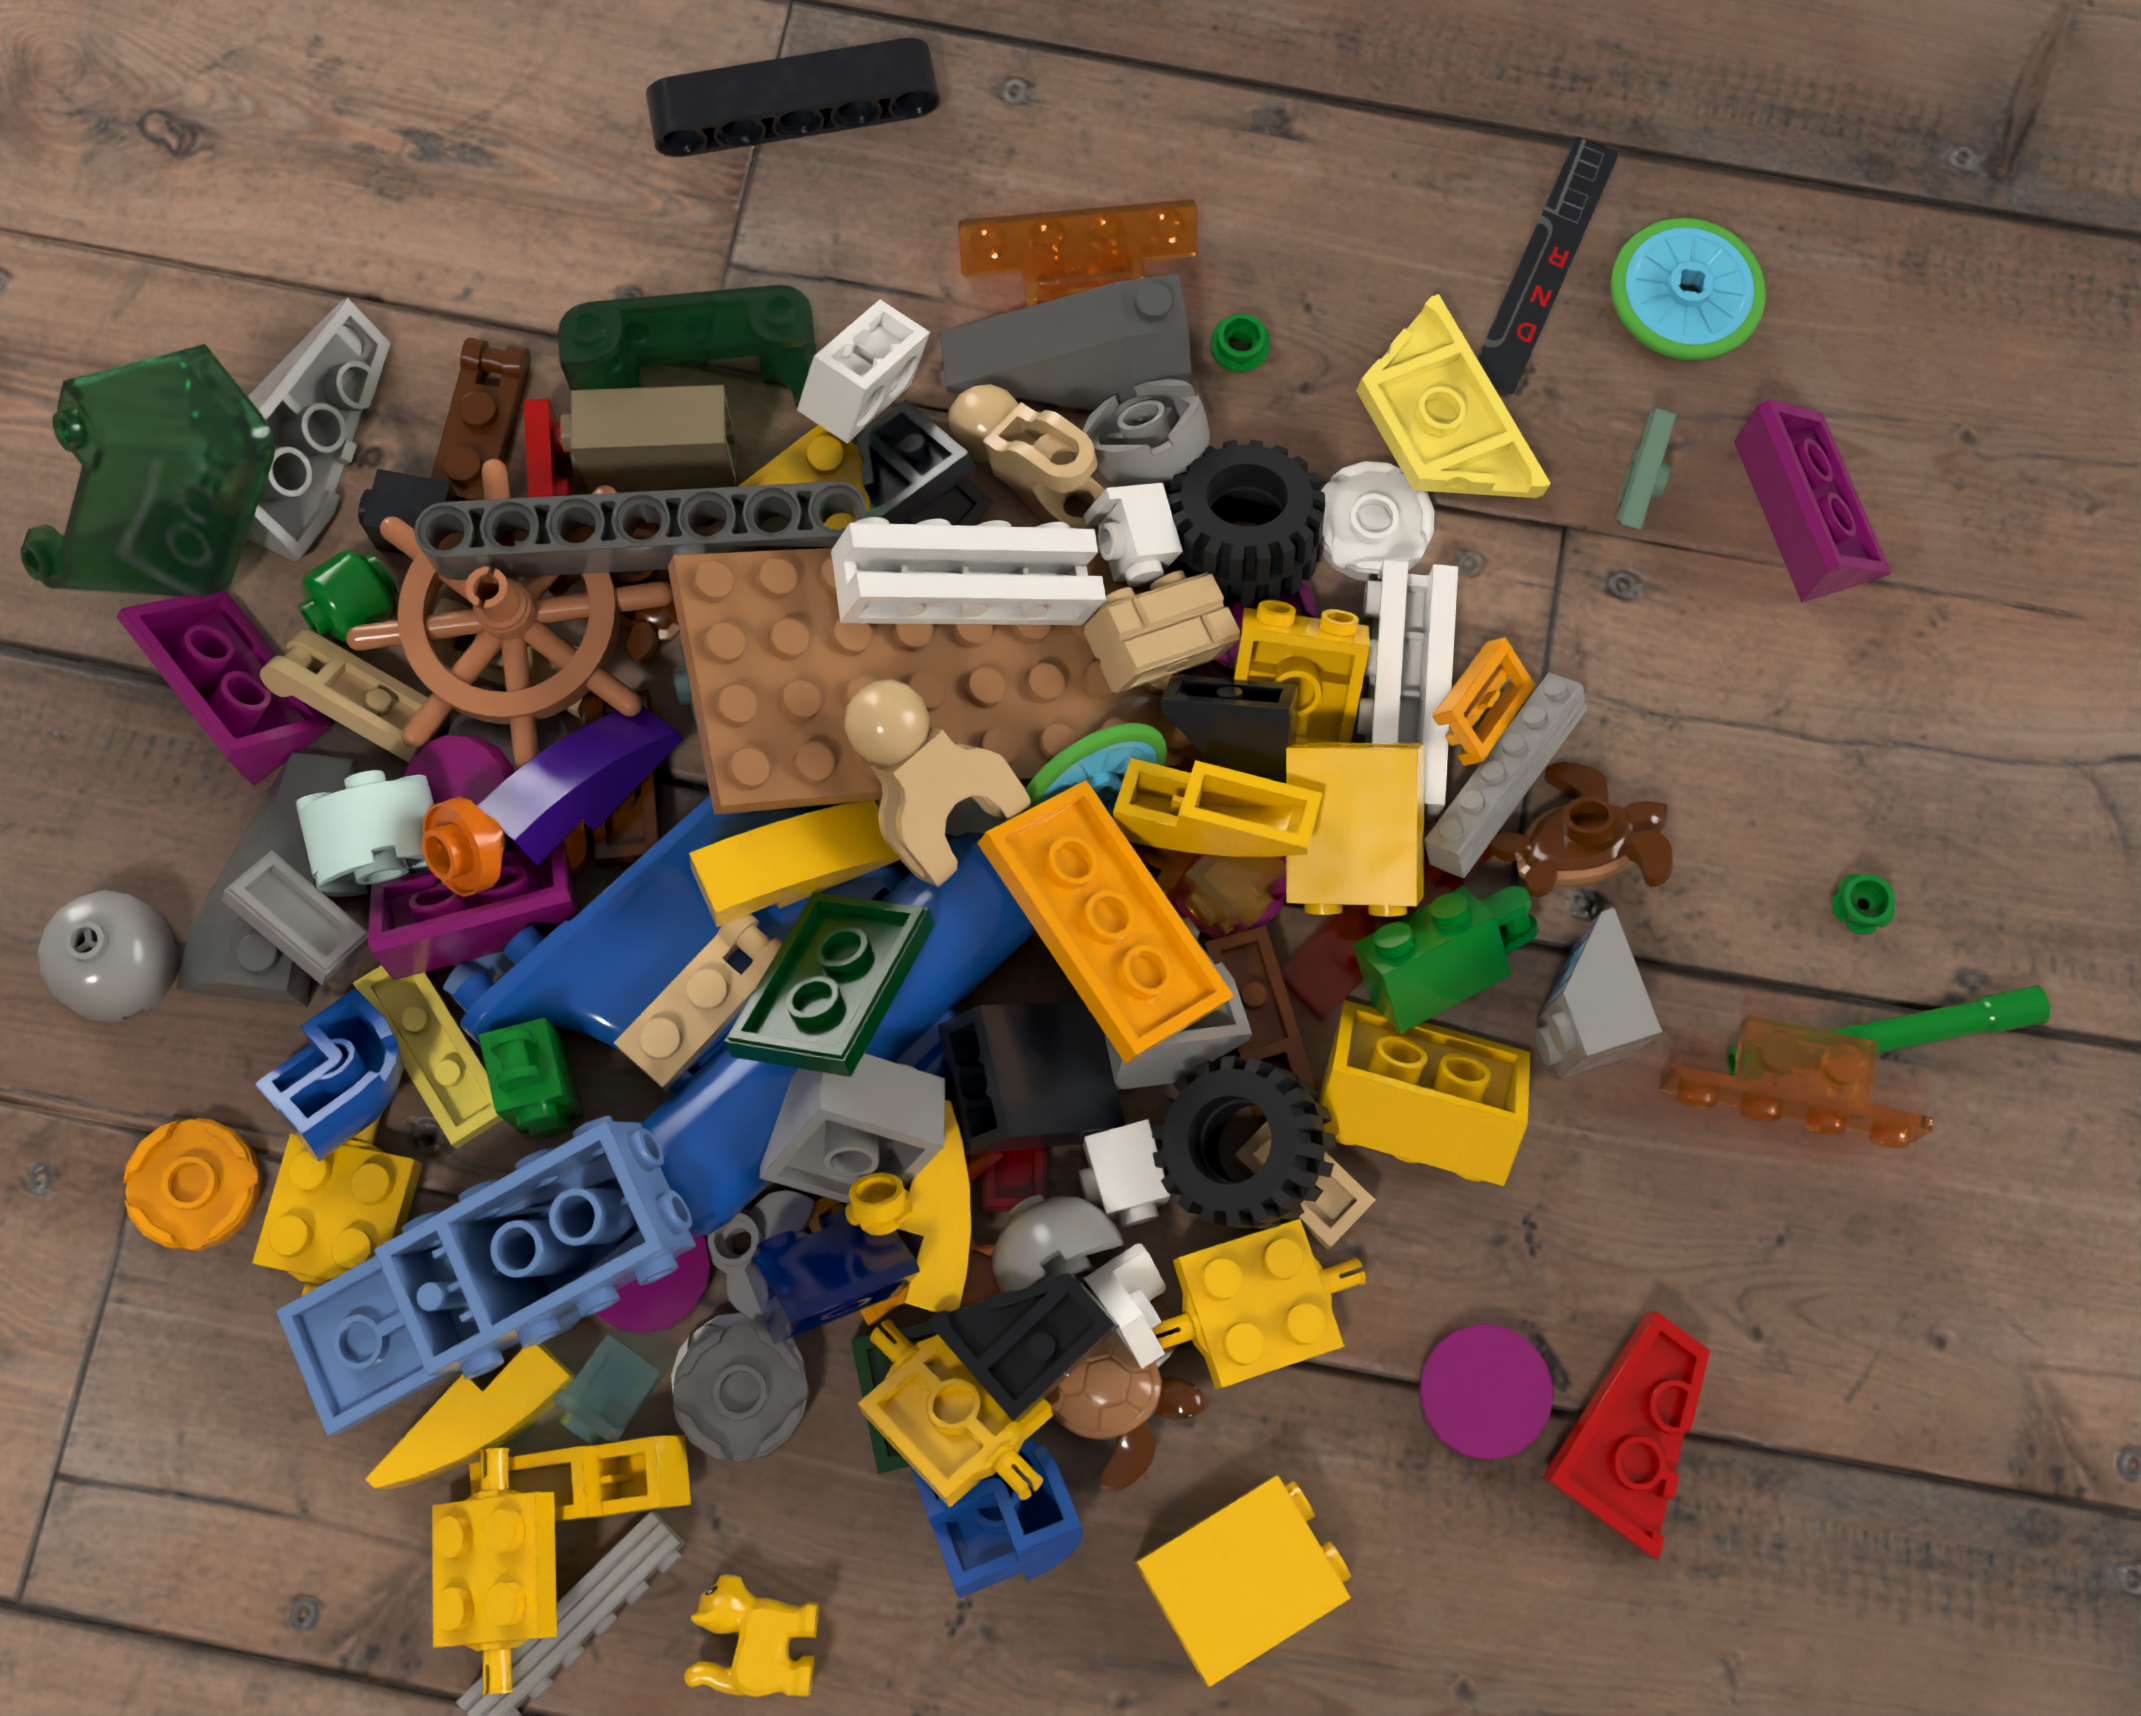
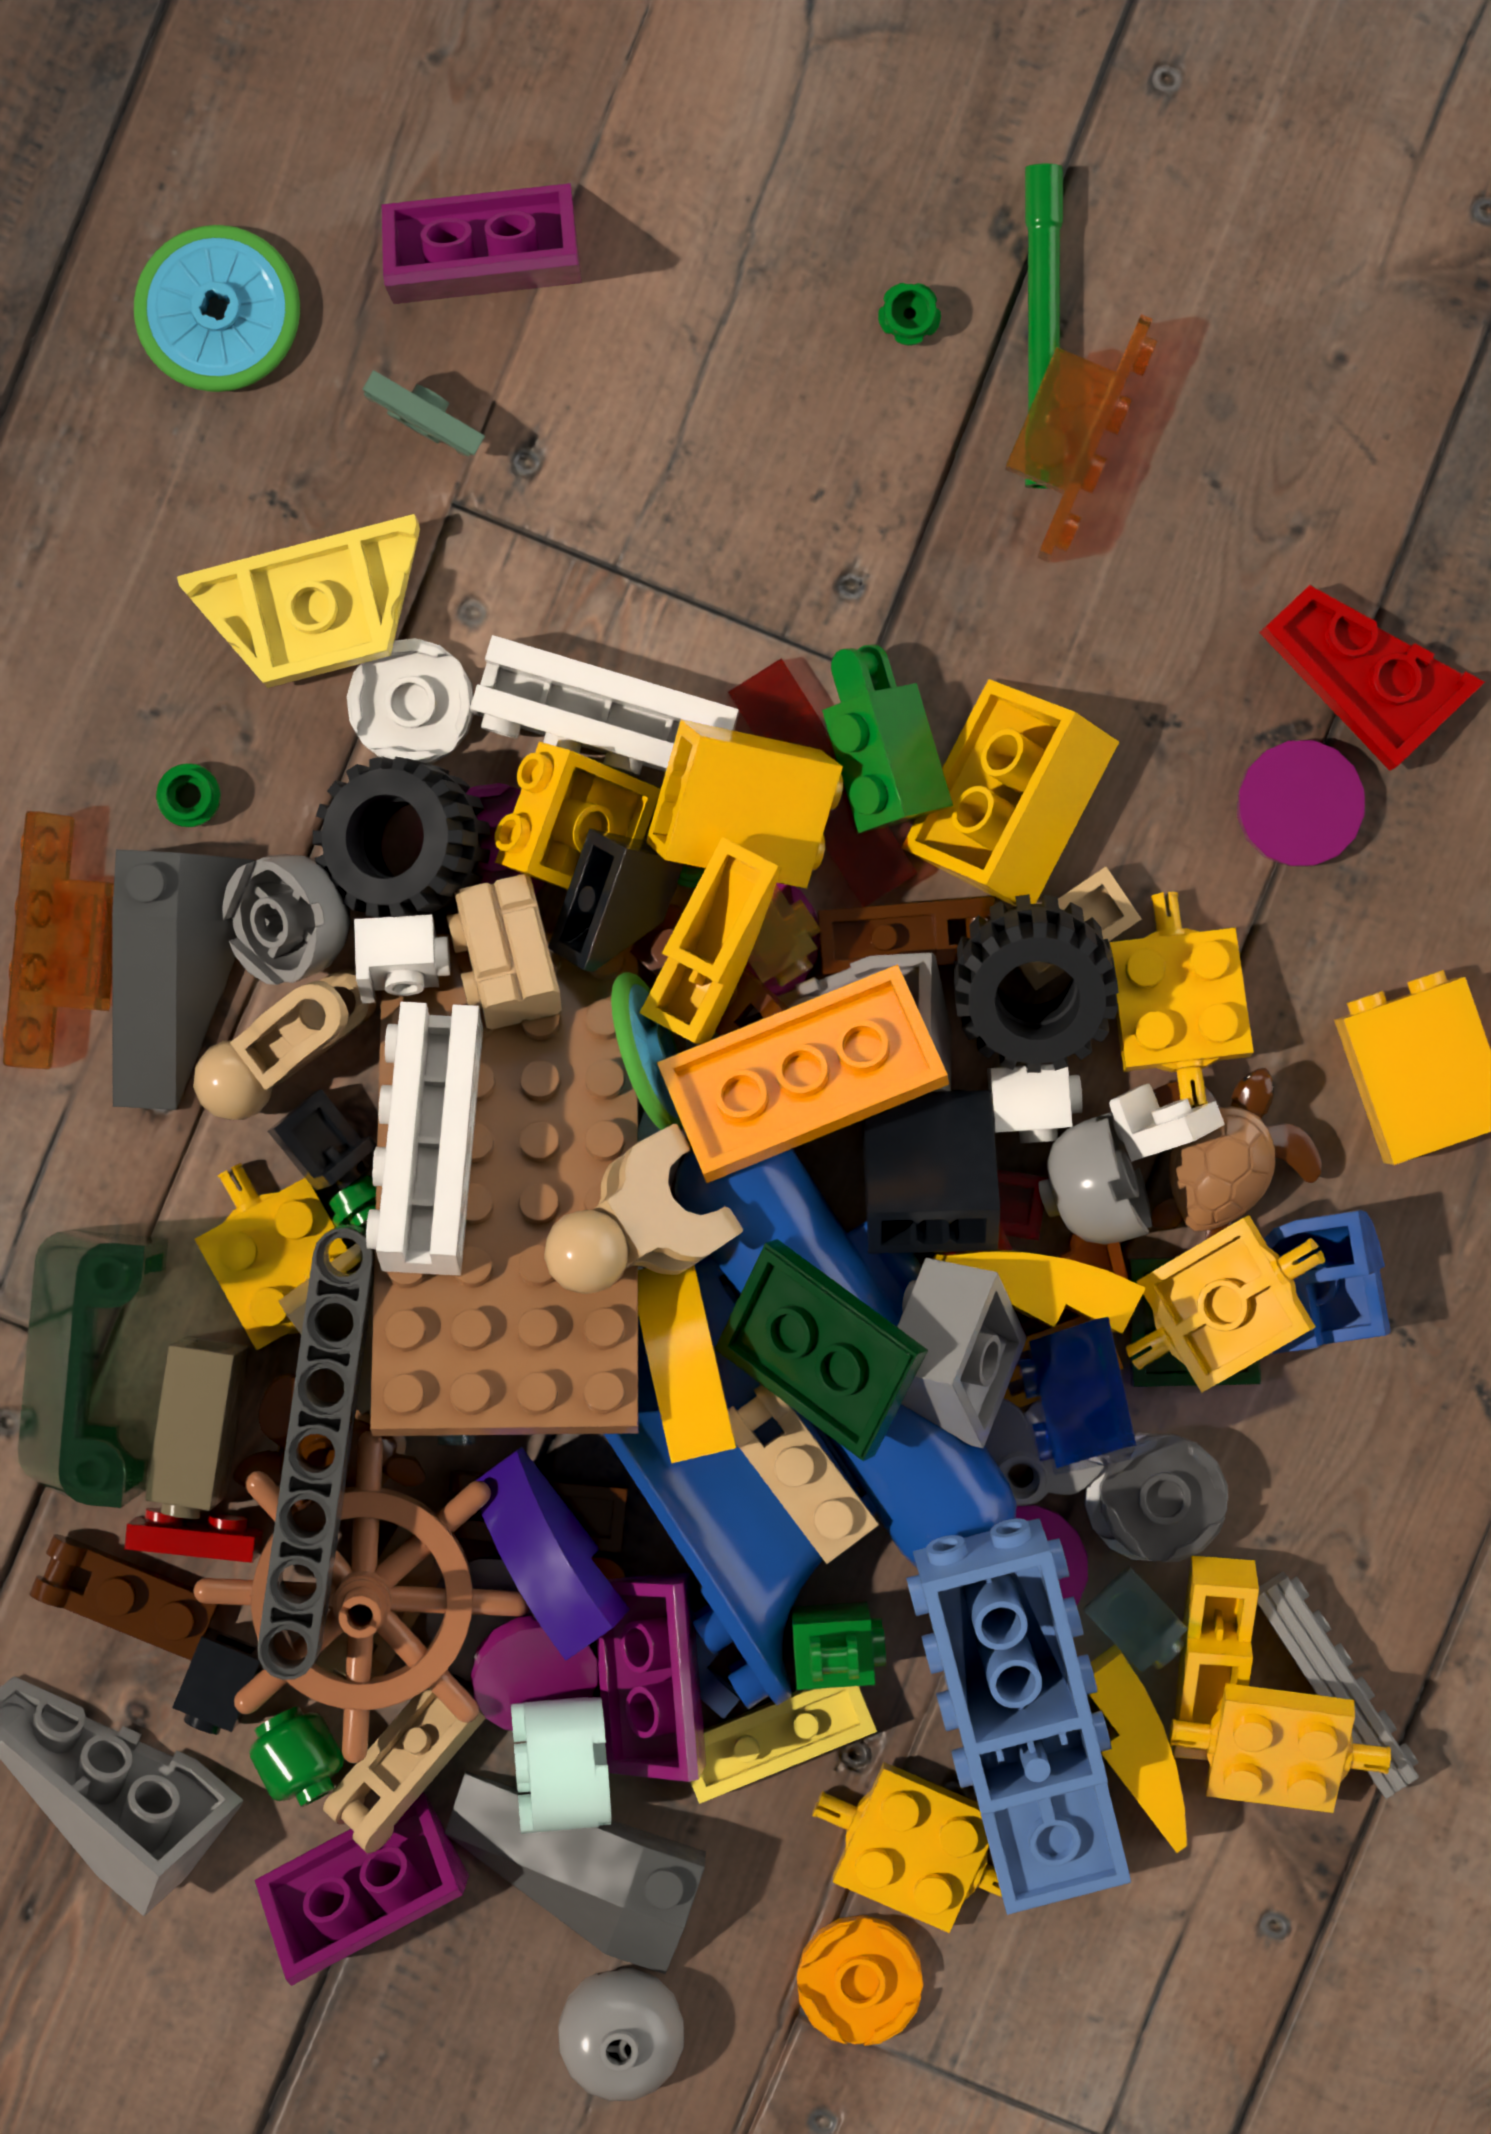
camera: 75 degrees left, 15 degrees up
(163, 482) = (168, 1916): clear green windscreen -> none
(296, 917) = (636, 1847): light grey tile -> none
(338, 1079) = (796, 1829): blue brick -> none
(463, 846) = (608, 1677): orange plate -> none
(762, 1651) = (1379, 1512): yellow animal -> none
(862, 371) = (160, 1196): white brick -> none
(878, 1203) = (1032, 1341): yellow plate -> none
(909, 463) = (278, 1173): black wing -> none
(1026, 1339) = (1183, 1229): black wing -> none
(1479, 690) = (626, 645): light orange tile -> none
(1505, 775) = (714, 637): light grey piece -> none
(1545, 263) = (153, 449): black sticker -> none
(1587, 837) = (796, 573): reddish brown animal -> none
(1596, 1003) = (966, 614): light grey slope -> none

